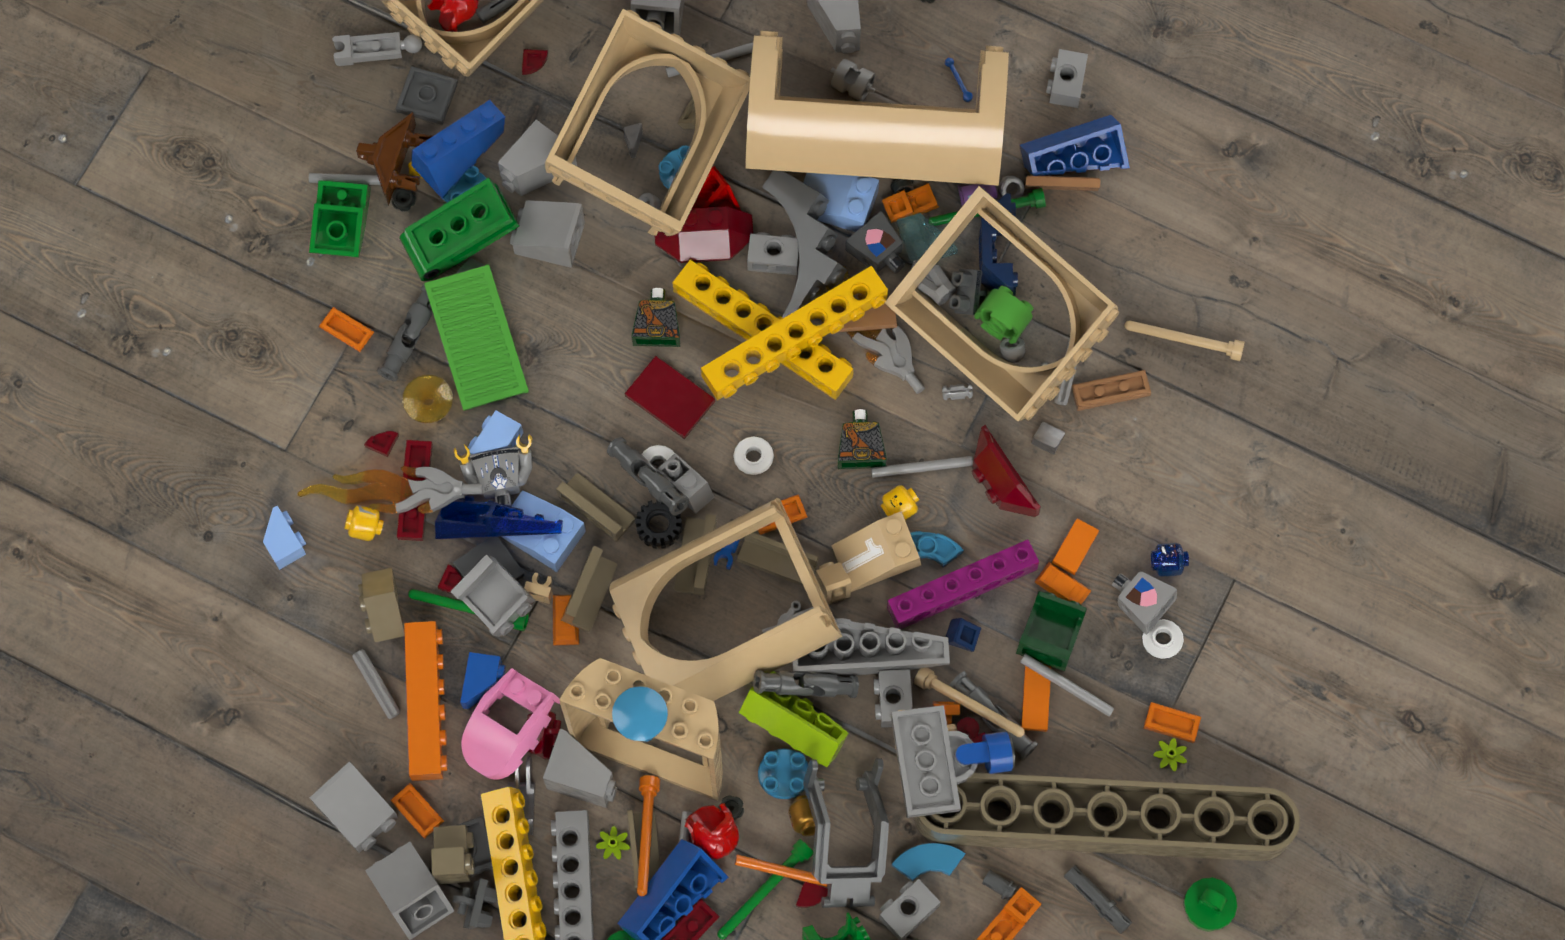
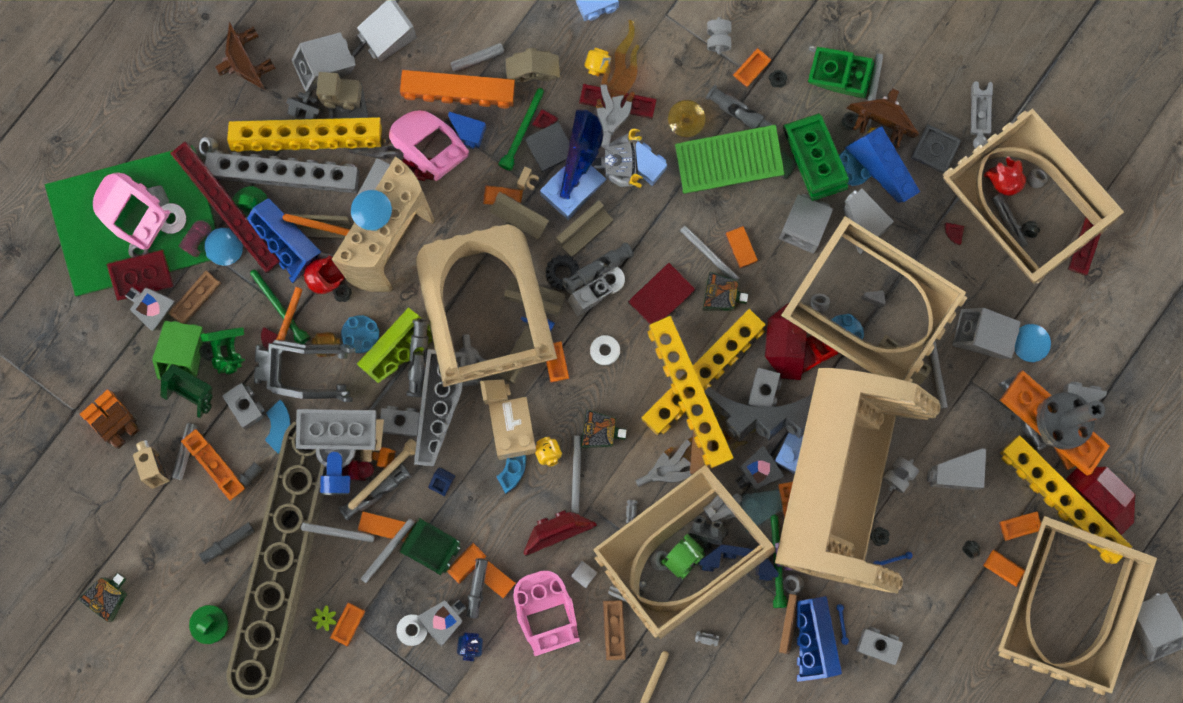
camera: 100 degrees right, 10 degrees up
(307, 374) = (719, 31): none -> light grey wheel
(356, 289) = (778, 74): none -> pearl dark grey plate
(382, 442) = (659, 83): dark red tile -> none
(417, 810) = (380, 75): orange tile -> none
(493, 595) = (523, 145): light grey panel -> none
(590, 309) = (741, 247): none -> orange tile
(605, 347) = (709, 254): none -> light grey bar
(615, 848) = (329, 204): lime plant -> none
(930, 101) = (875, 536): none -> pearl dark grey plate
(962, 584) = (476, 487): magenta brick -> none
(1058, 749) = (337, 532): none -> light grey bar
(1068, 121) = (844, 640): none -> blue hinge
(1084, 486) = (538, 593): none -> bright pink slope
(1093, 562) = (475, 596): none -> dark grey pin
(1099, 277) = (707, 638): none -> light grey piece

